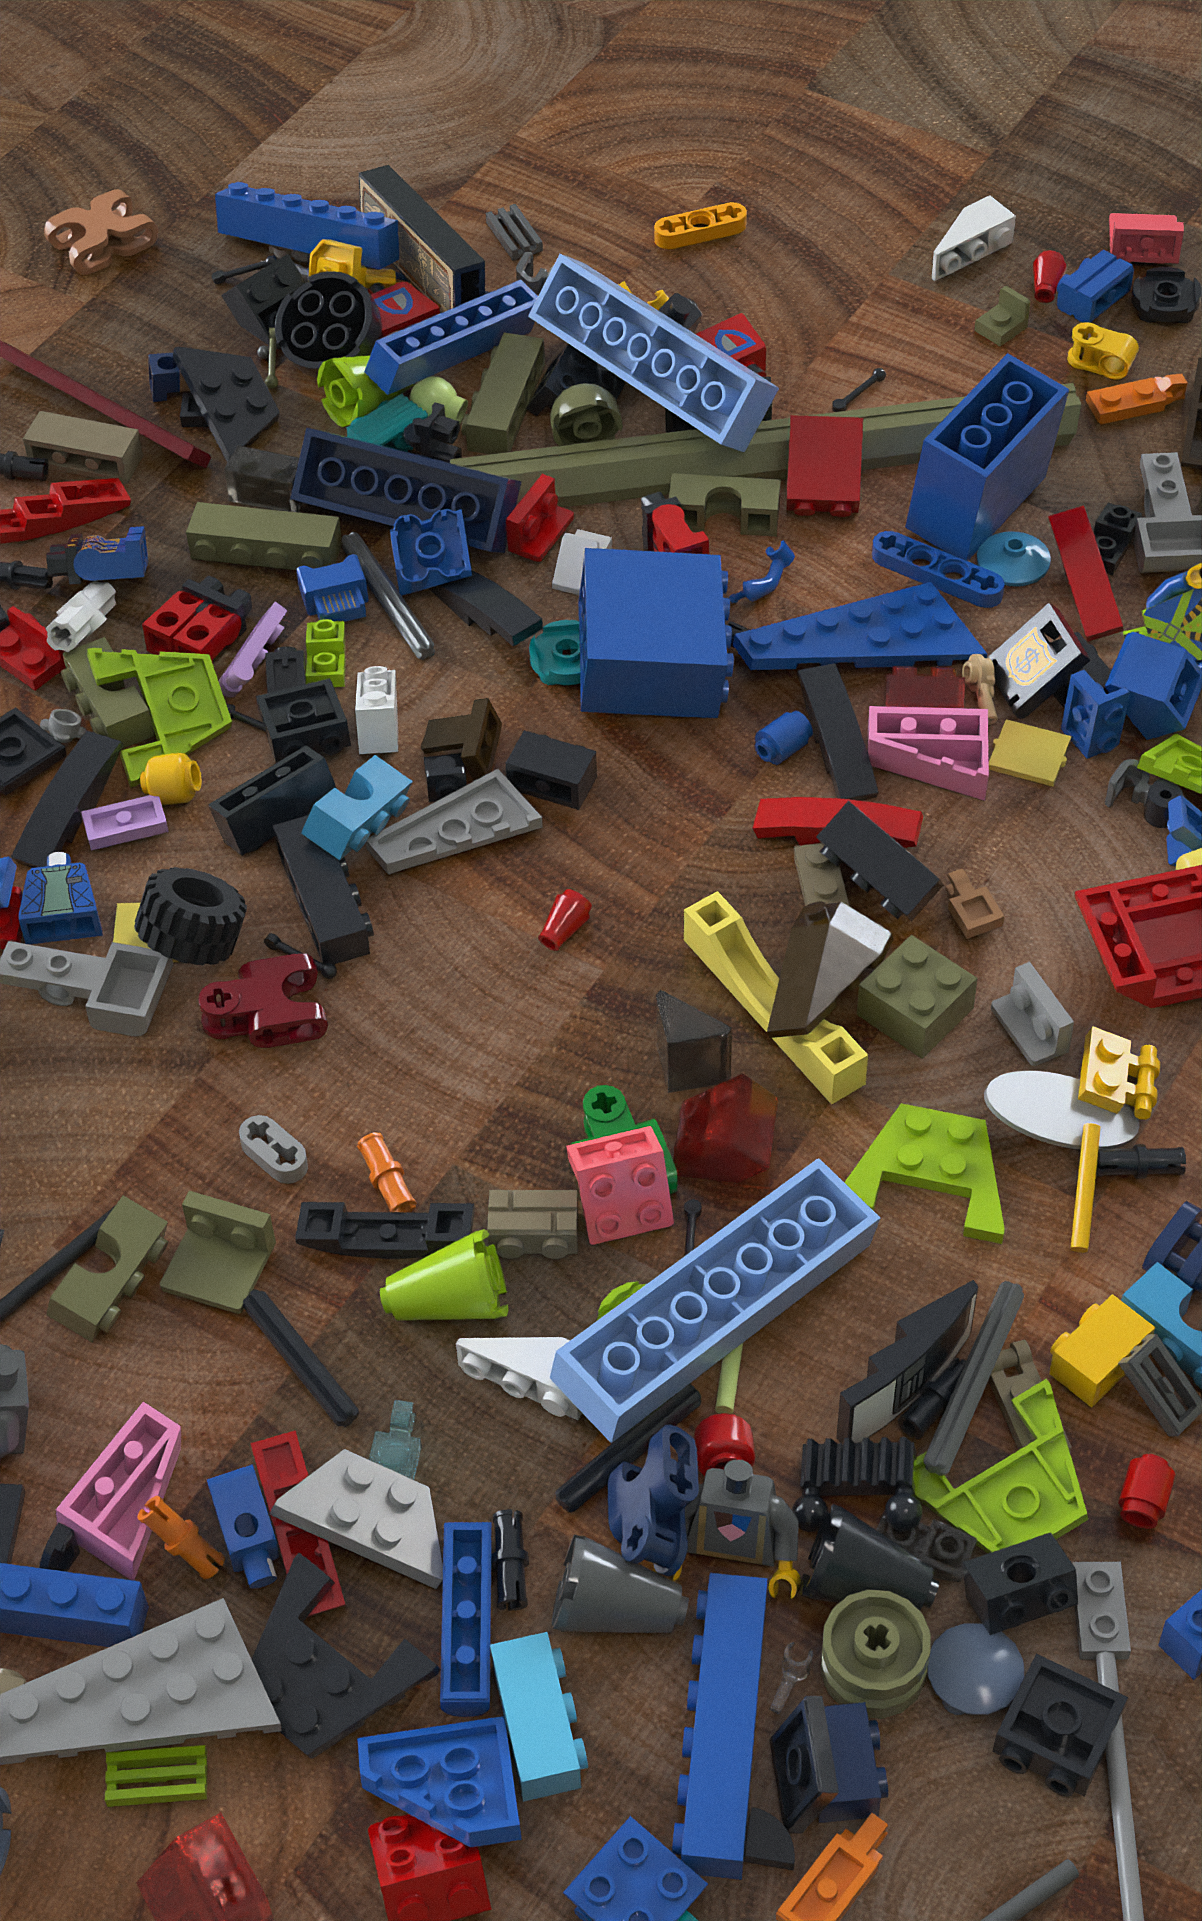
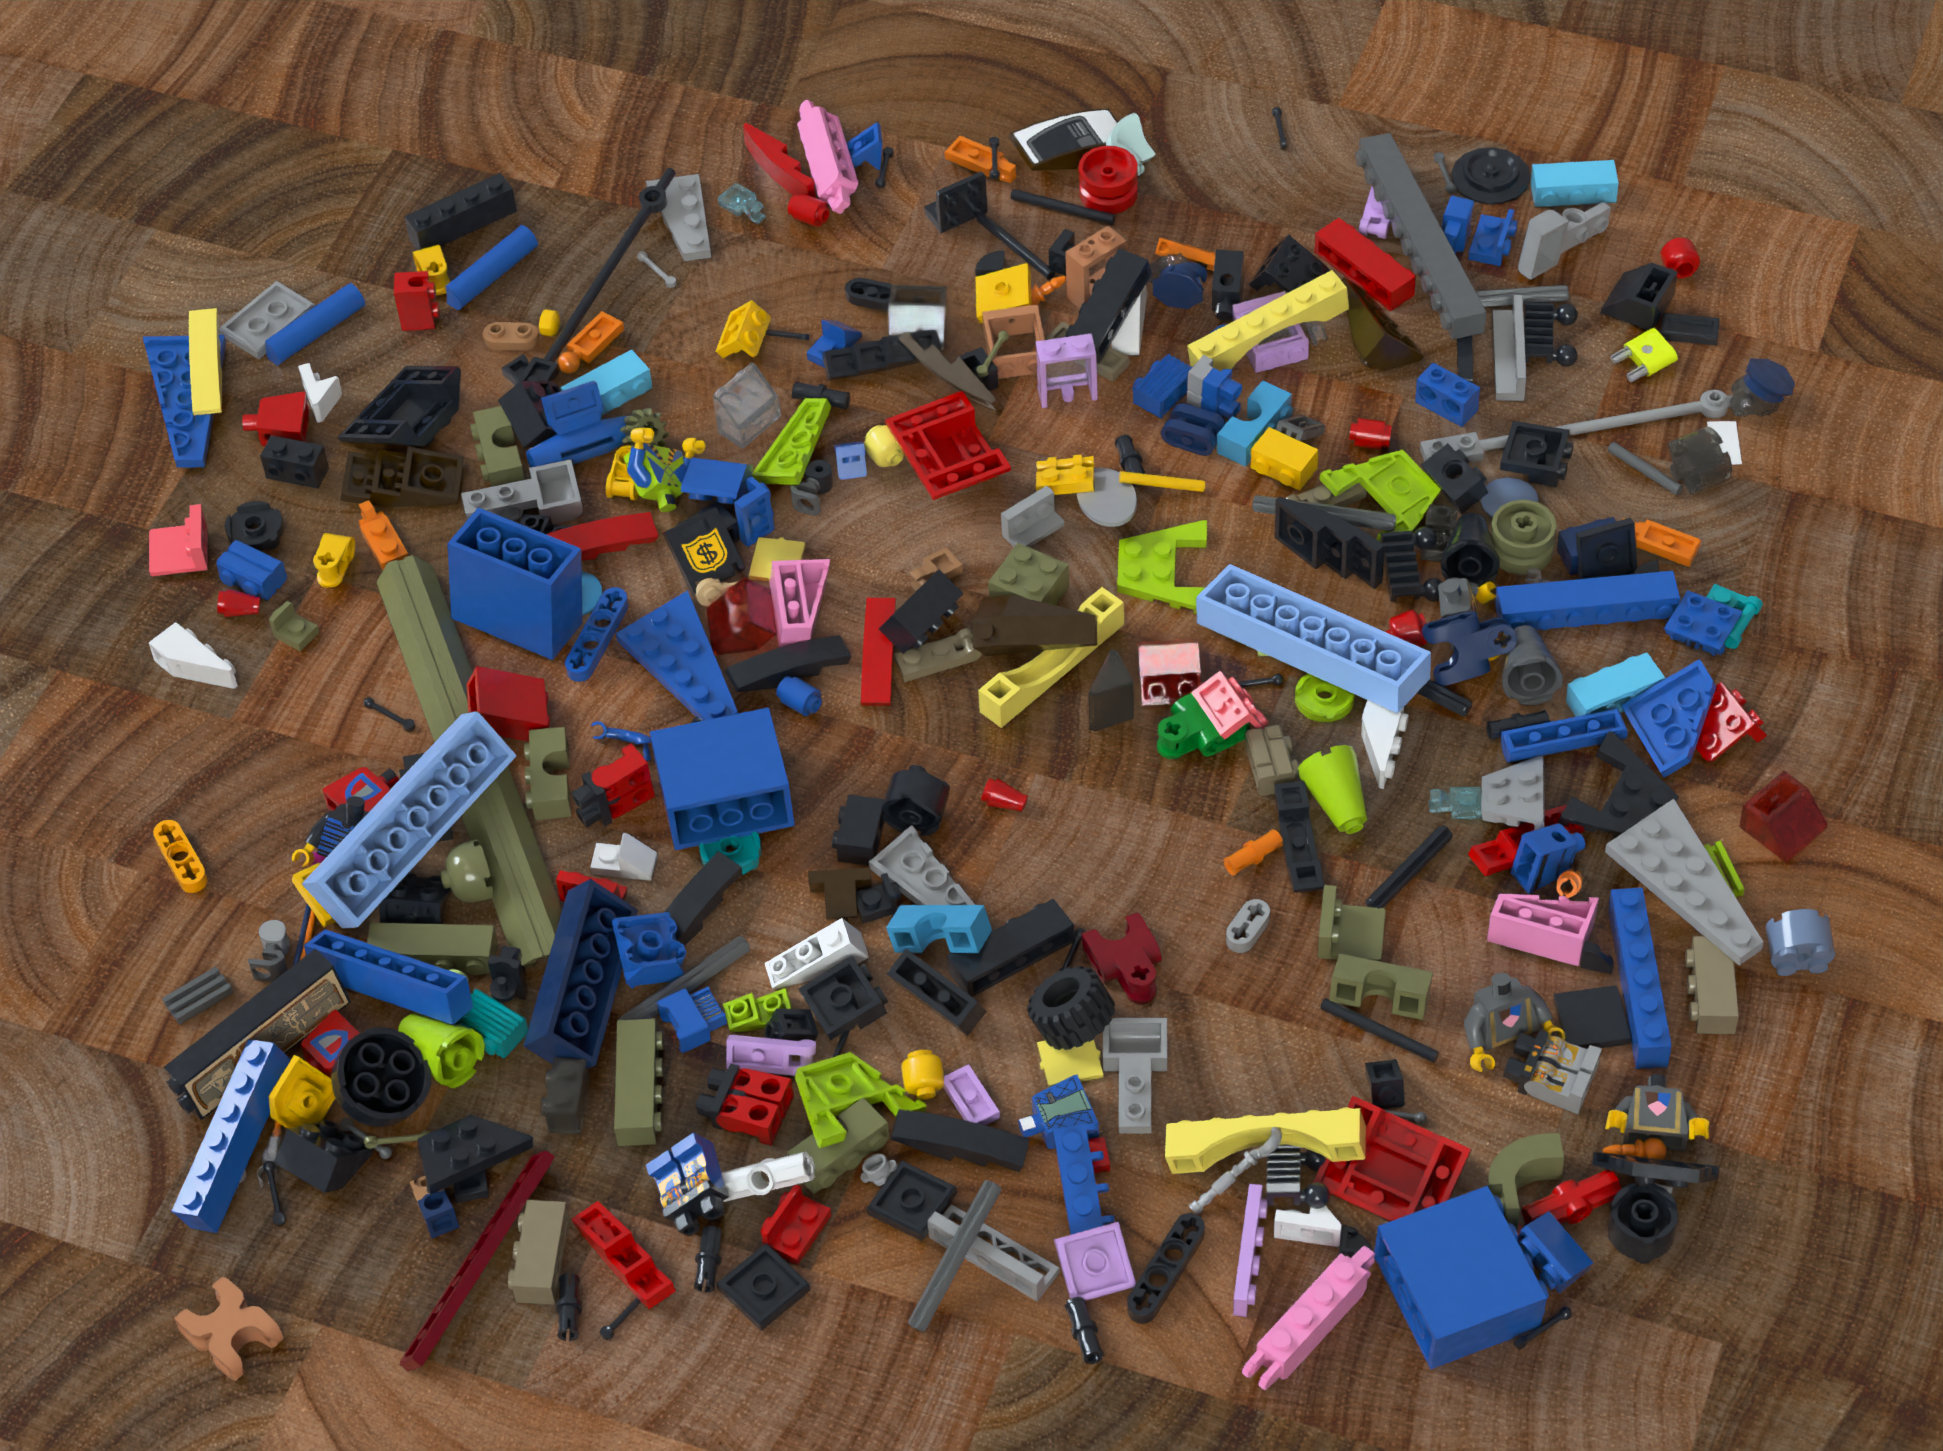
camera: 100 degrees left, 0 degrees up
(565, 814) = (915, 800): none -> black brick

